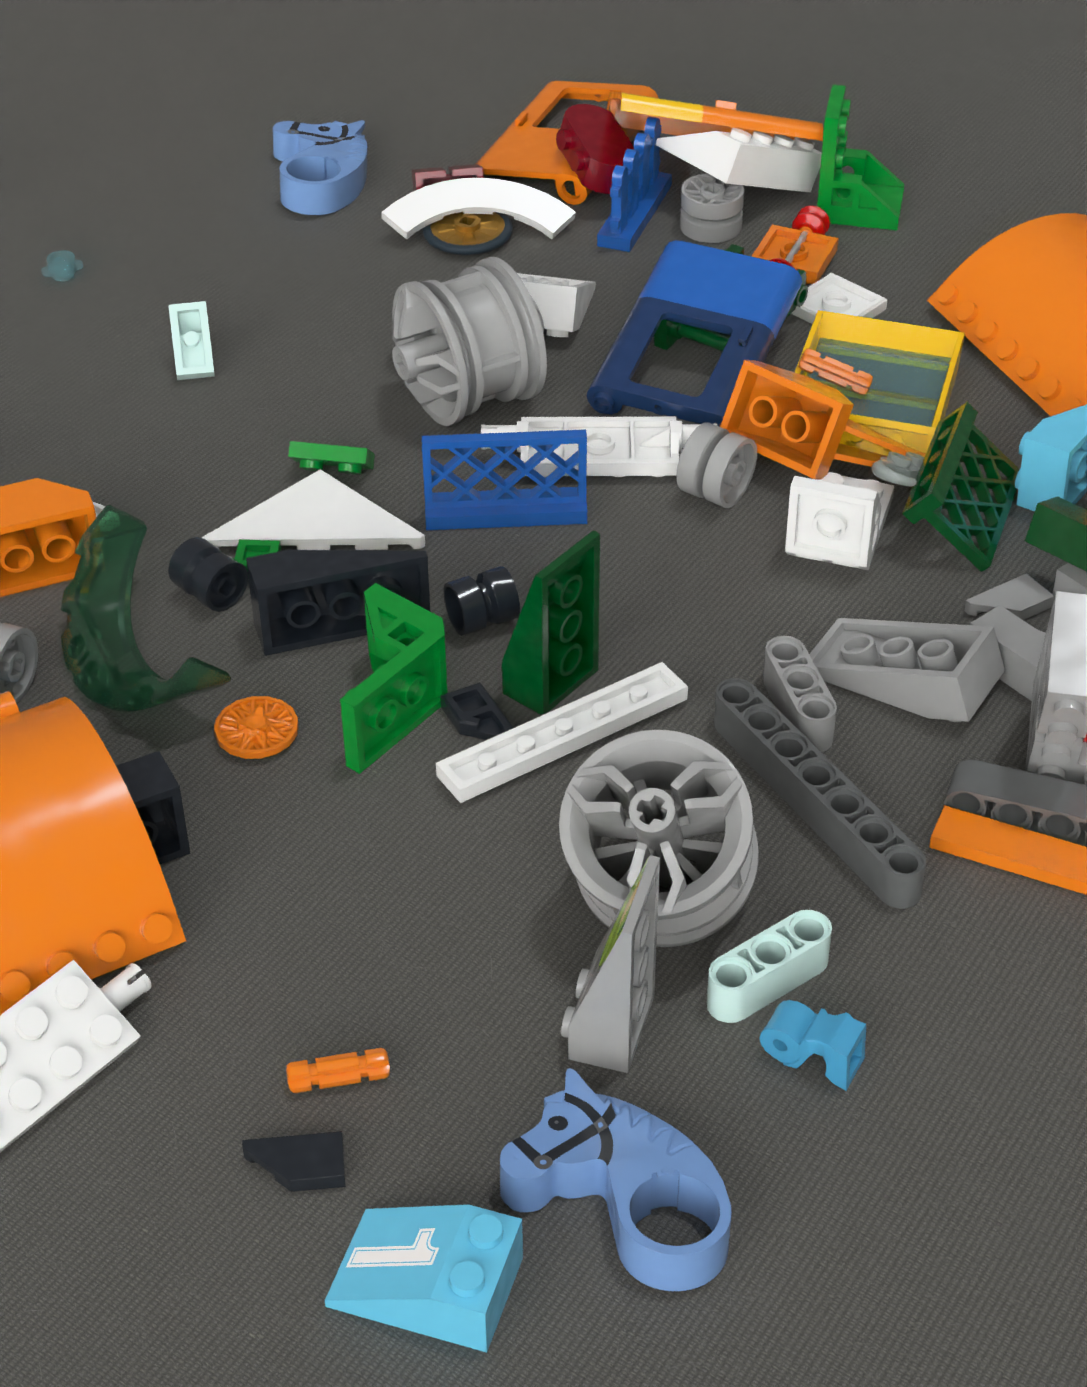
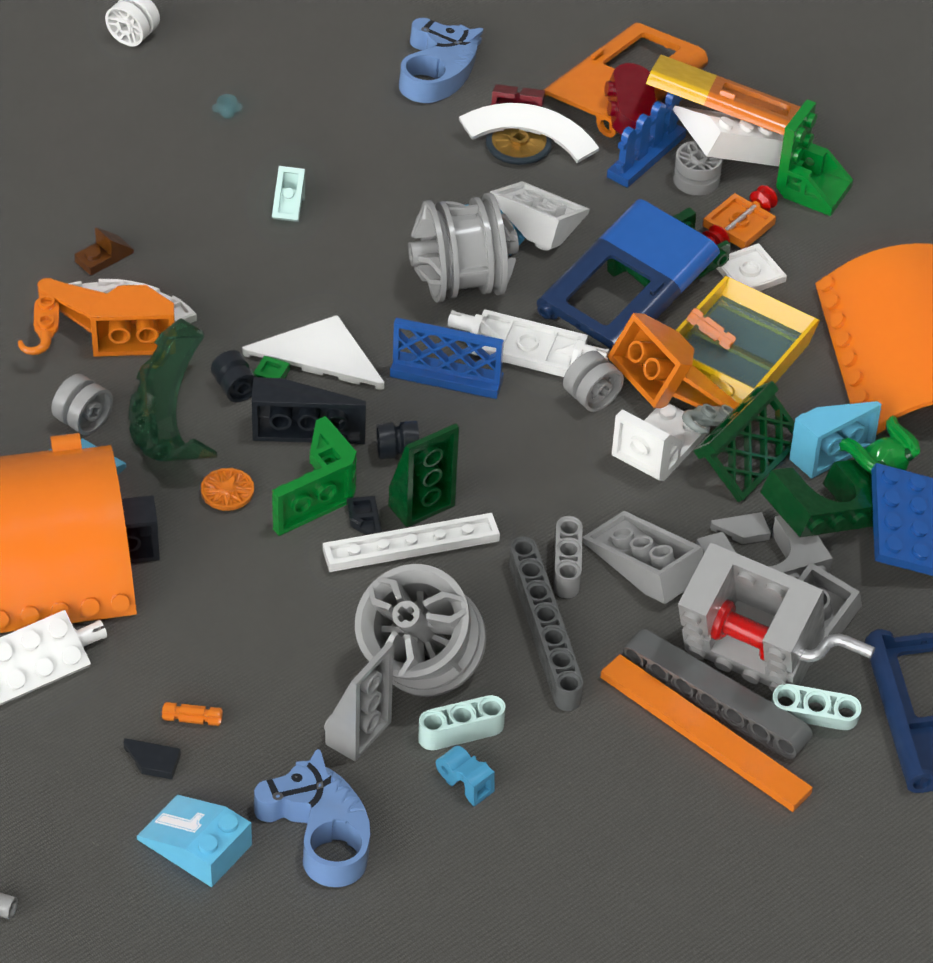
camera: 15 degrees right, 5 degrees up
(348, 459) = (357, 312): plate -> none

